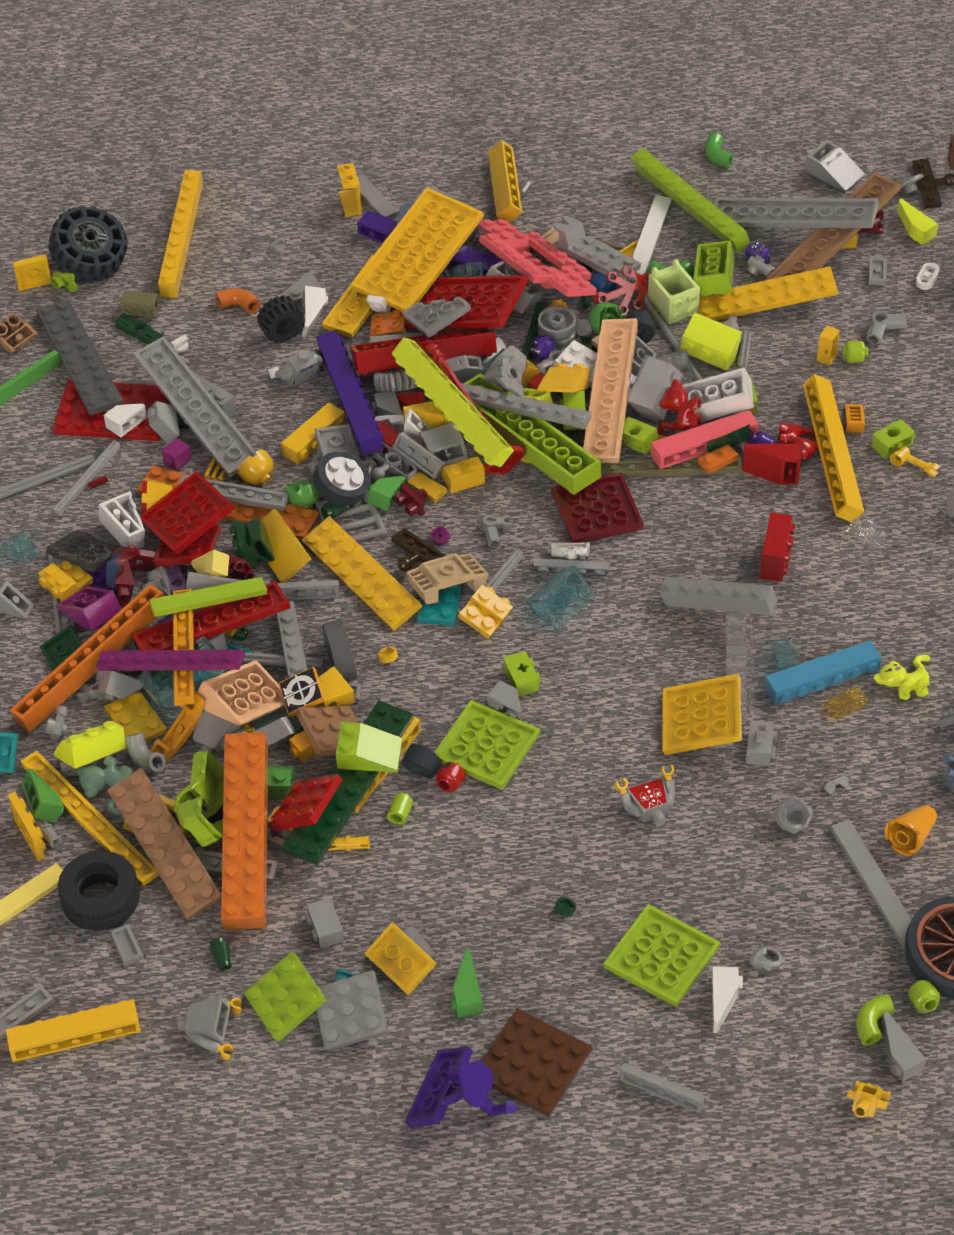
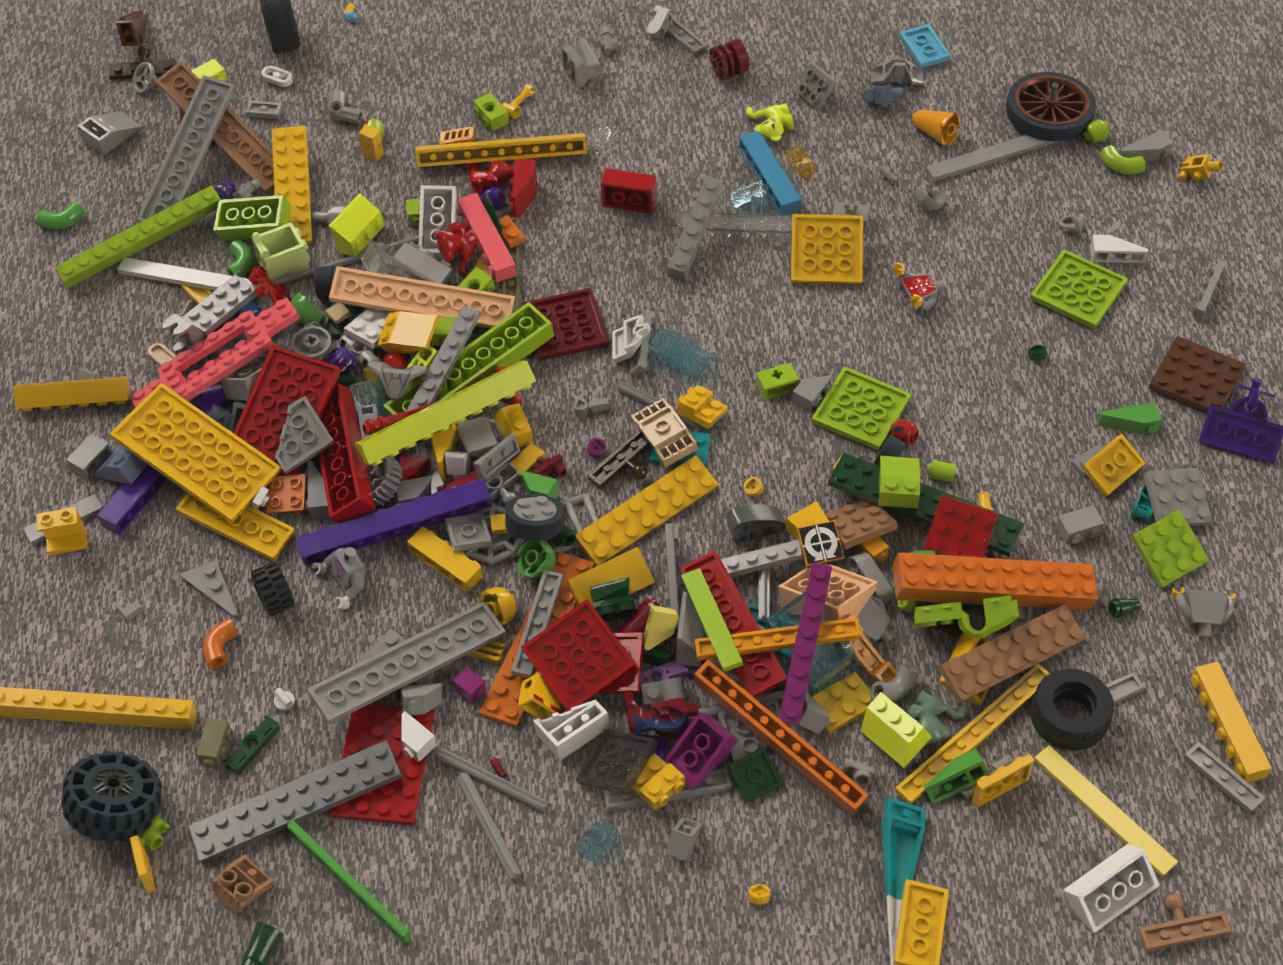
camera: 90 degrees left, 5 degrees up
(312, 306) = (239, 564): white slope -> none

